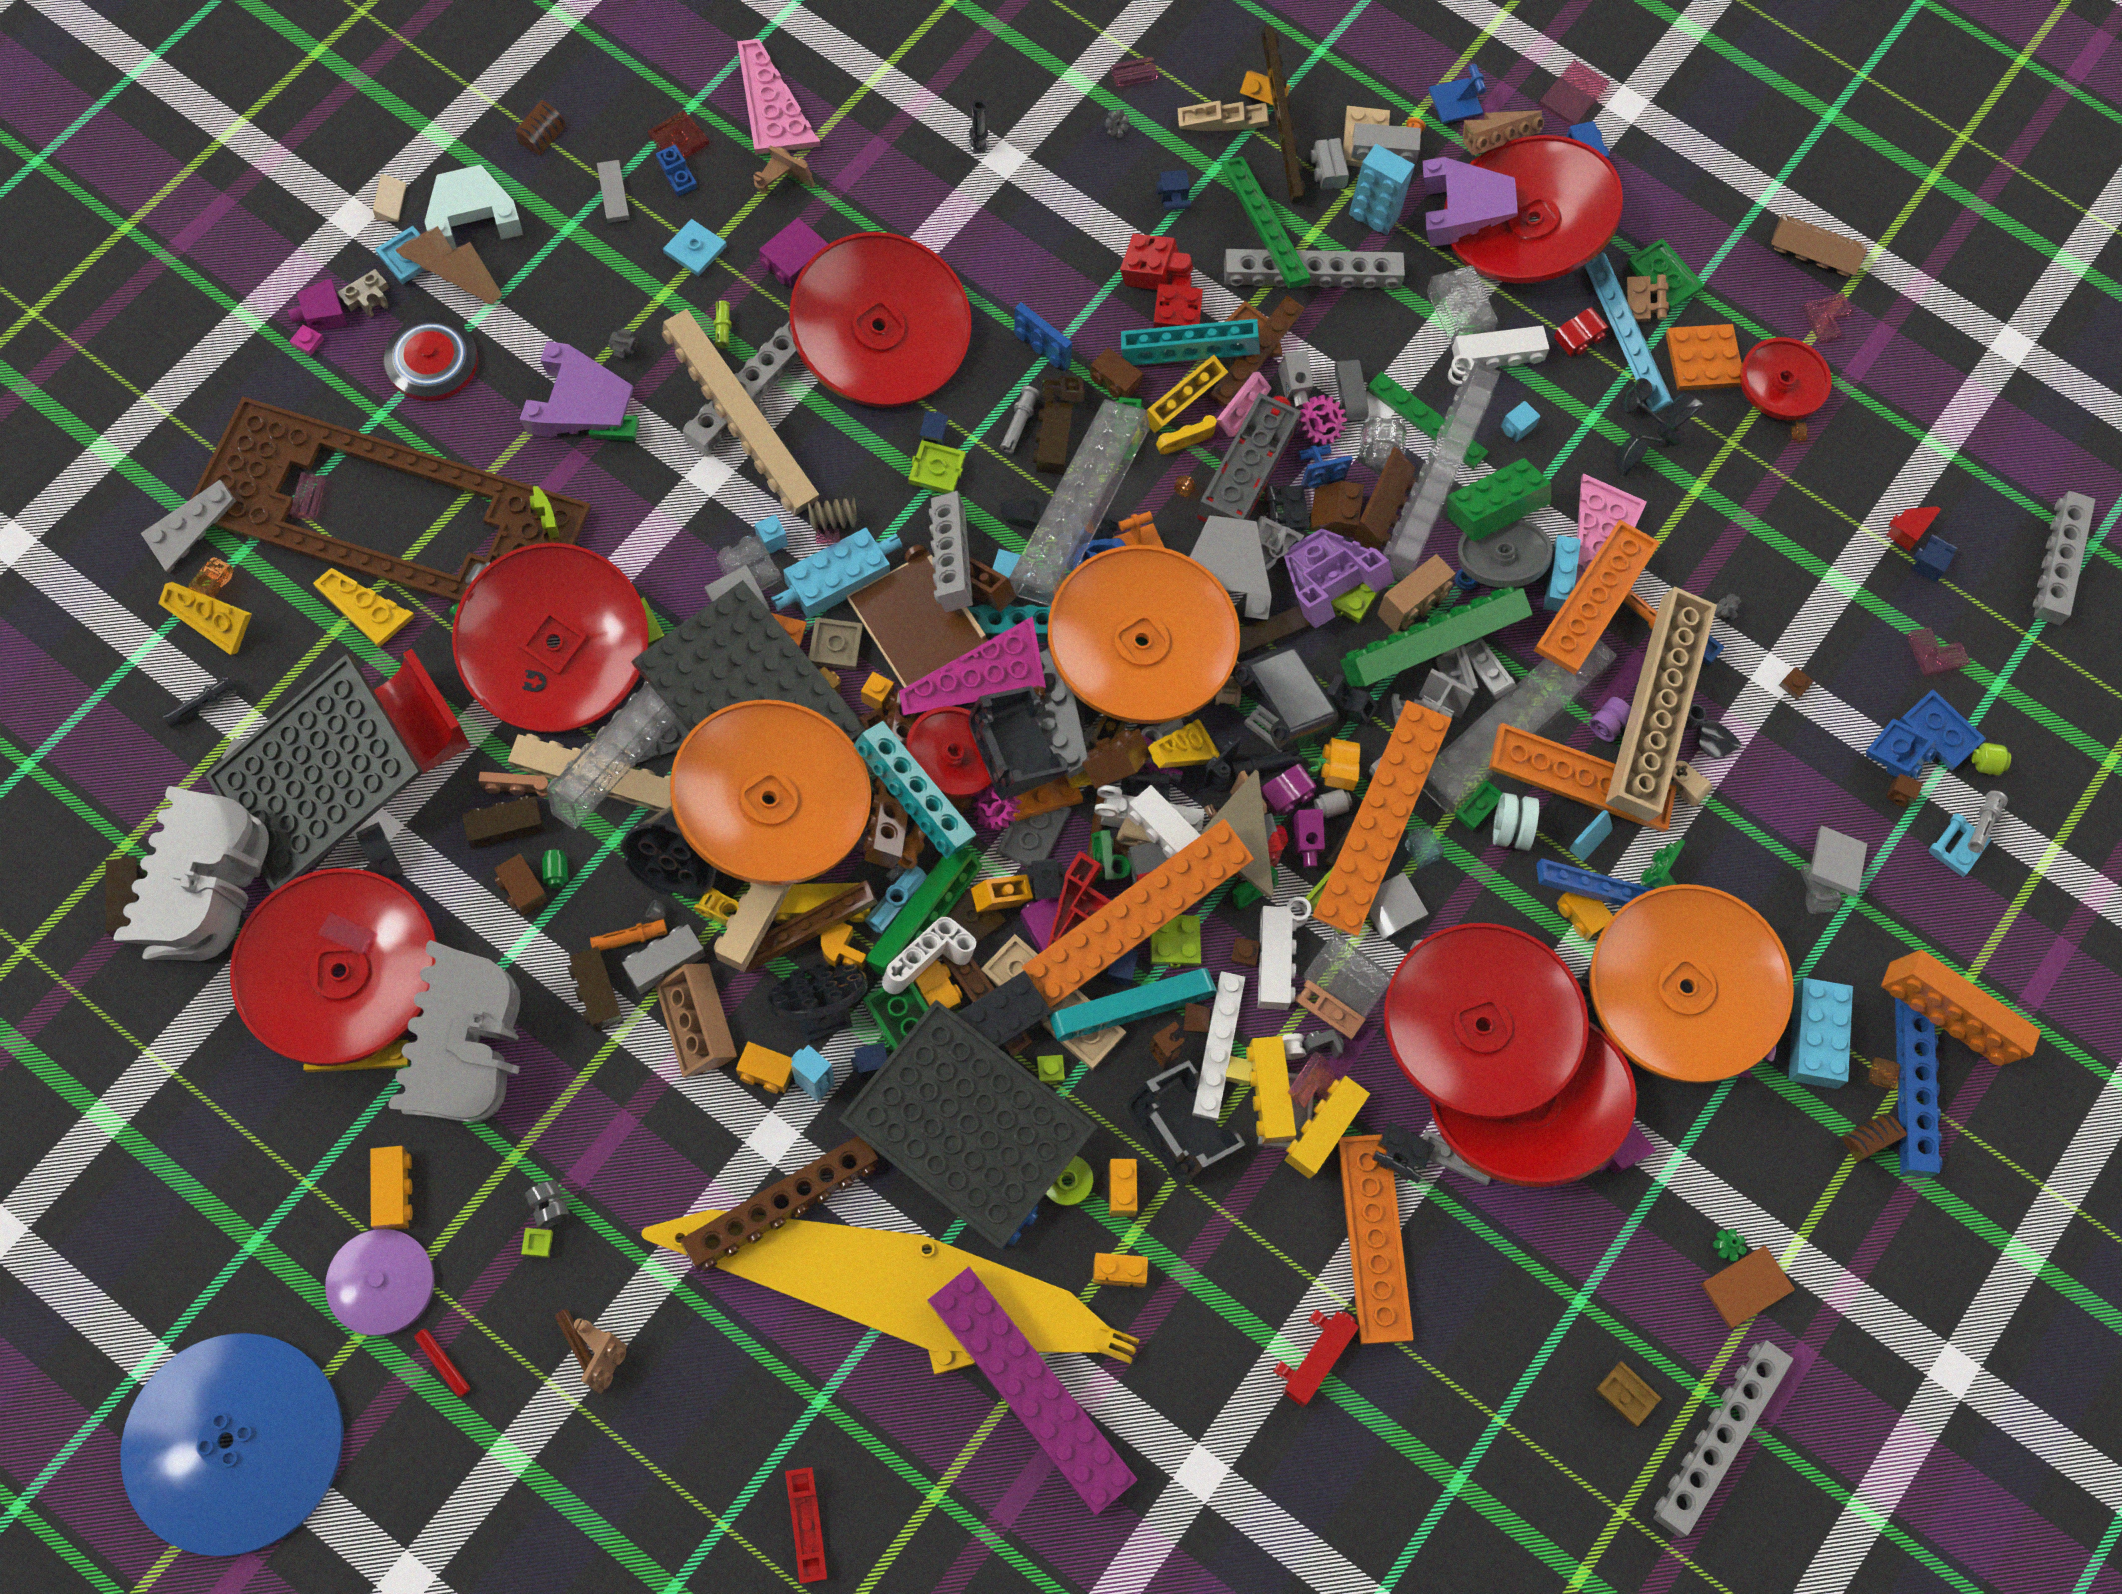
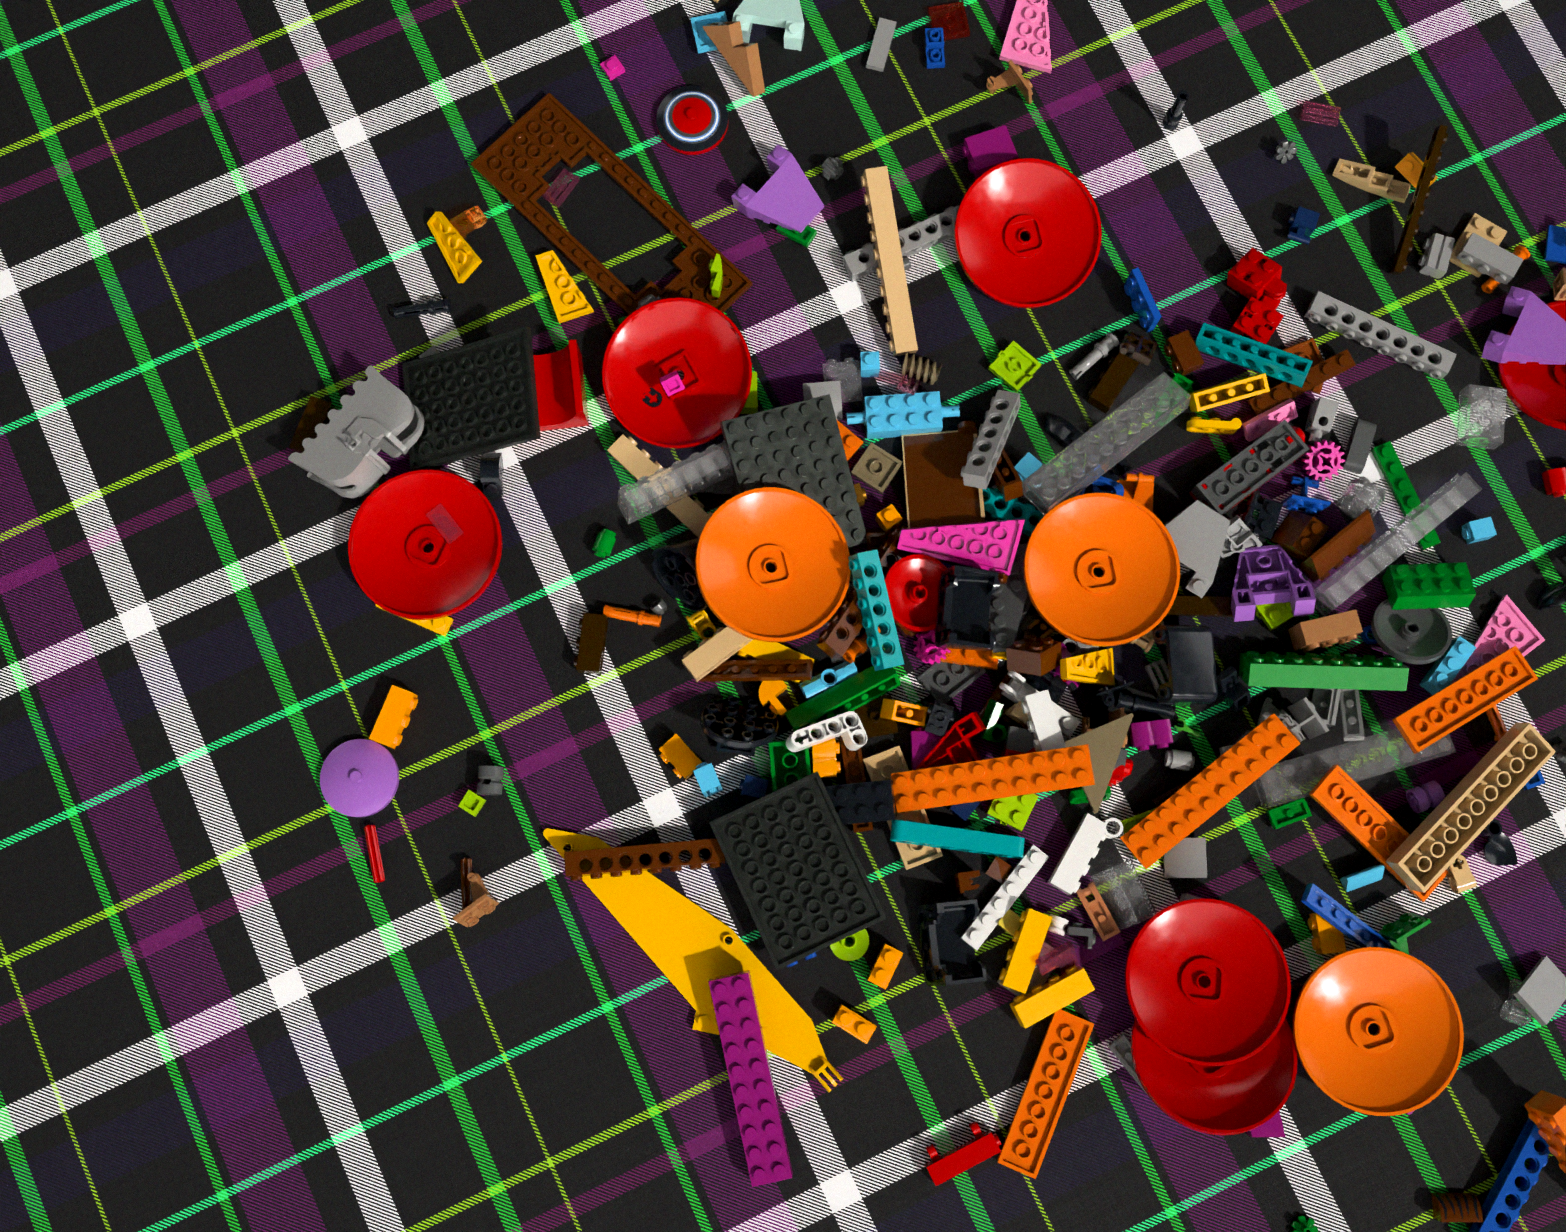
camera: 35 degrees right, 10 degrees up
(184, 526) = (468, 173): light grey wing -> none
(281, 1452) = (253, 848): blue dish -> none
(319, 307) = (632, 46): magenta torso -> none
(365, 293) = (669, 49): dark tan plate -> none
(450, 1069) = (467, 655): light grey animal -> none
(503, 822) = (585, 492): dark brown brick -> none
(514, 783) = (605, 468): nougat plate -> none
(520, 884) = (576, 544): reddish brown brick -> none
(551, 648) = (672, 383): none -> dark pink plate
(663, 958) = (647, 644): light grey brick -> none
(694, 247) = (920, 115): medium azure plate -> none
(695, 1019) = (649, 698): medium nougat slope -> none
(722, 324) = (911, 184): lime pin -> none
(806, 1525) = (558, 1088): red slope -> none
(934, 428) = (1027, 335): dark blue brick -> none
(1050, 1069) = (877, 854): lime plate -> none
(1184, 486) = (1192, 463): clear orange plate -> none
(1245, 952) = (1058, 838): reddish brown plate -> none
(1266, 222) = (1360, 283): green plate -> none
(1310, 826) = (1148, 768): magenta torso -> none
(1341, 764) = (1200, 734): light orange brick -> none
(1381, 189) = (1465, 297): medium azure brick -> none
(1407, 1147) = (1101, 1038): black plate -> none
(1424, 846) = (1230, 824): clear light blue brick -> none
(1498, 349) = (1490, 464): white hinge -> none
(1515, 821) = (1309, 841): light aqua wheel -> none
(1820, 1033) = (1458, 1112): medium azure brick -> none
(1884, 1073) = (1491, 1164): clear orange plate -> none

